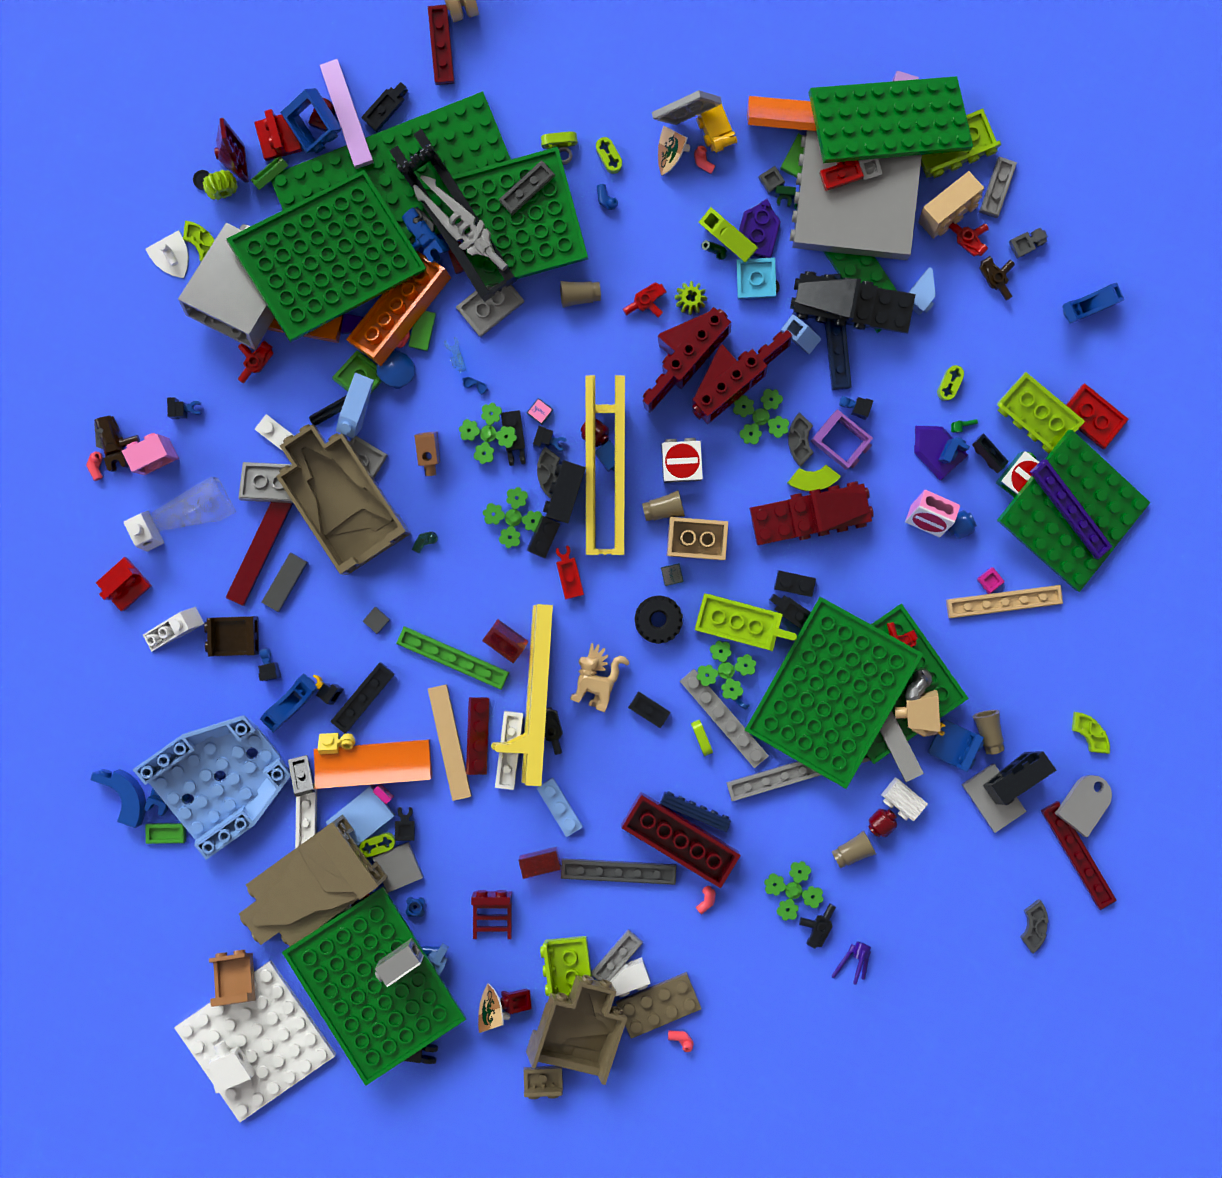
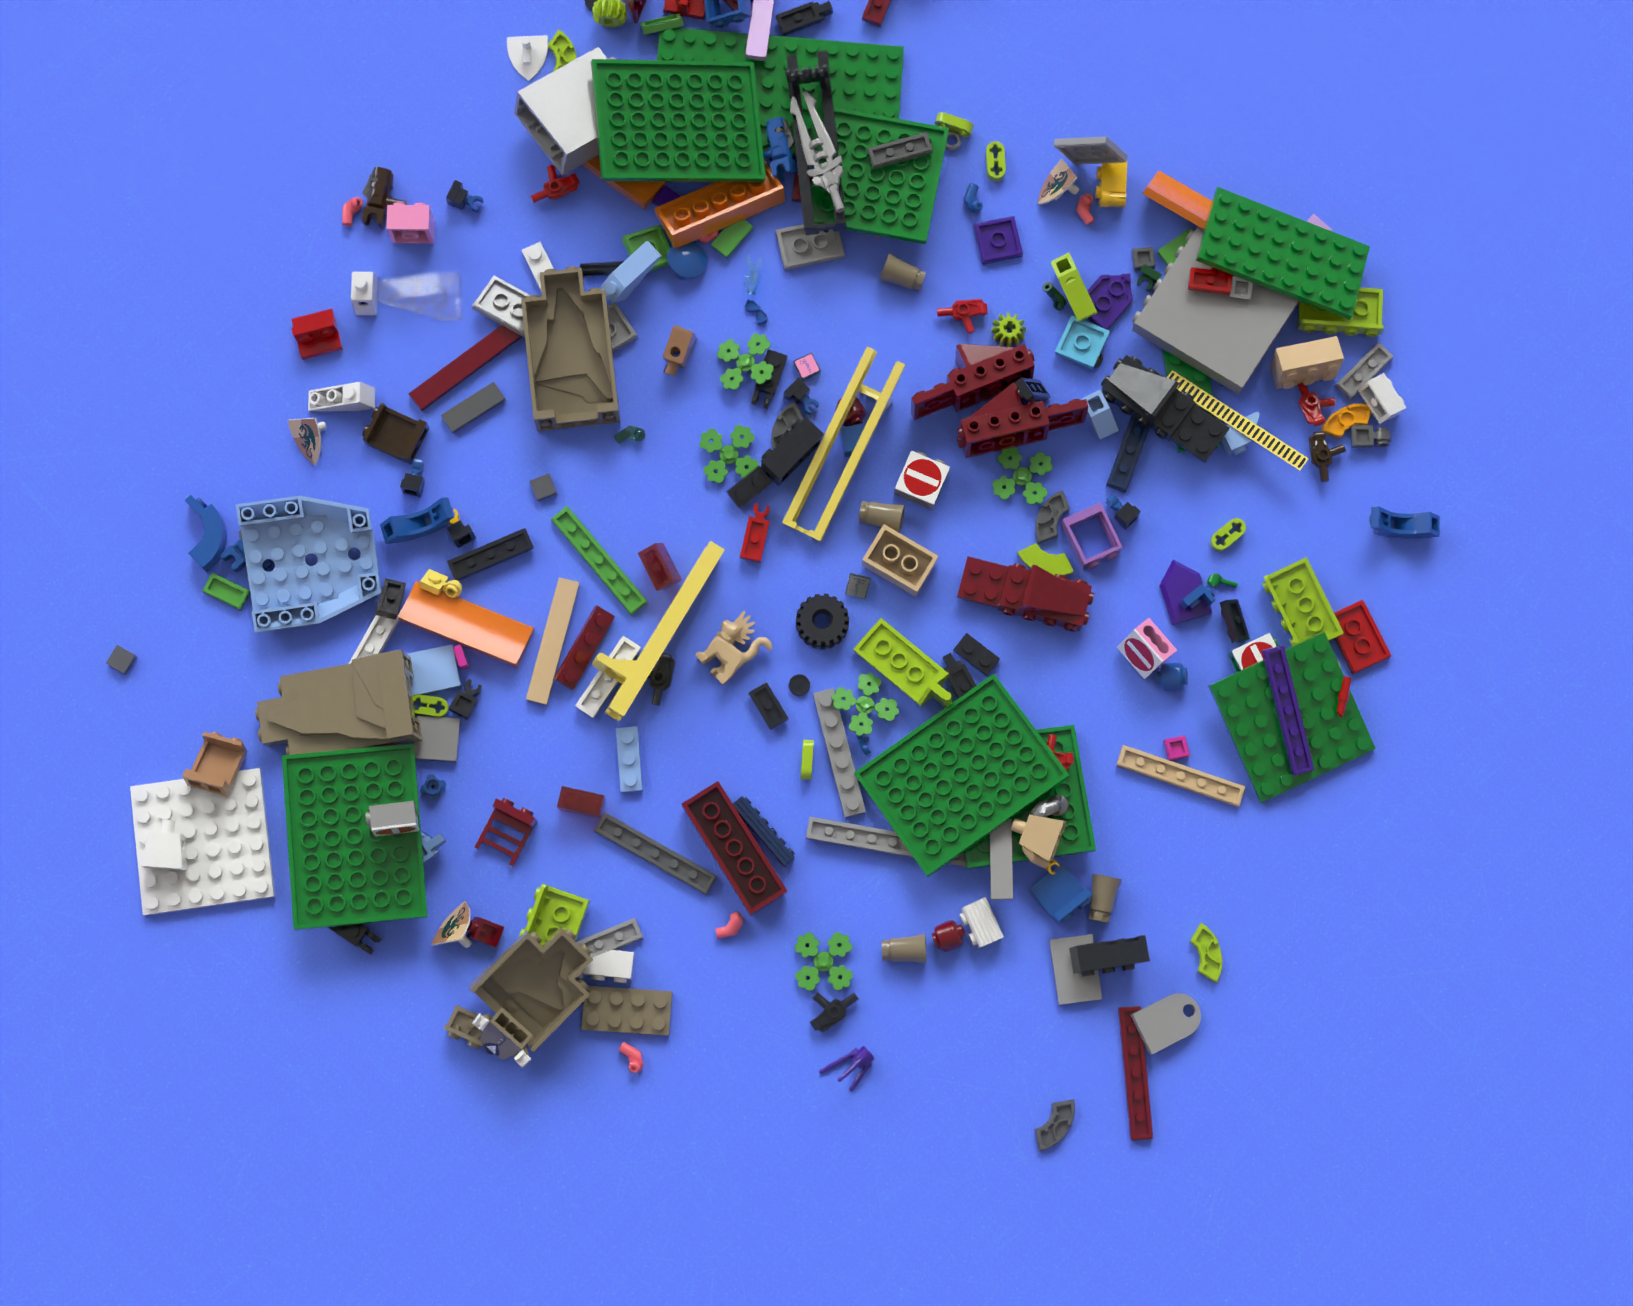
camera: 20 degrees right, 10 degrees down
(111, 930) = (121, 659): none -> dark grey tile
(162, 675) = (307, 437): none -> shield
(576, 1082) = (504, 1036): none -> torso
(644, 223) = (998, 240): none -> dark purple tile
(665, 679) = (799, 685): none -> black piece
(737, 342) = (1032, 390): none -> black plate
(918, 284) = (1240, 423): none -> light yellow sticker
(1001, 235) = (1346, 417): none -> light orange tile
(1025, 204) = (1382, 398): none -> white brick
(1110, 474) = (1343, 696): none -> red piece

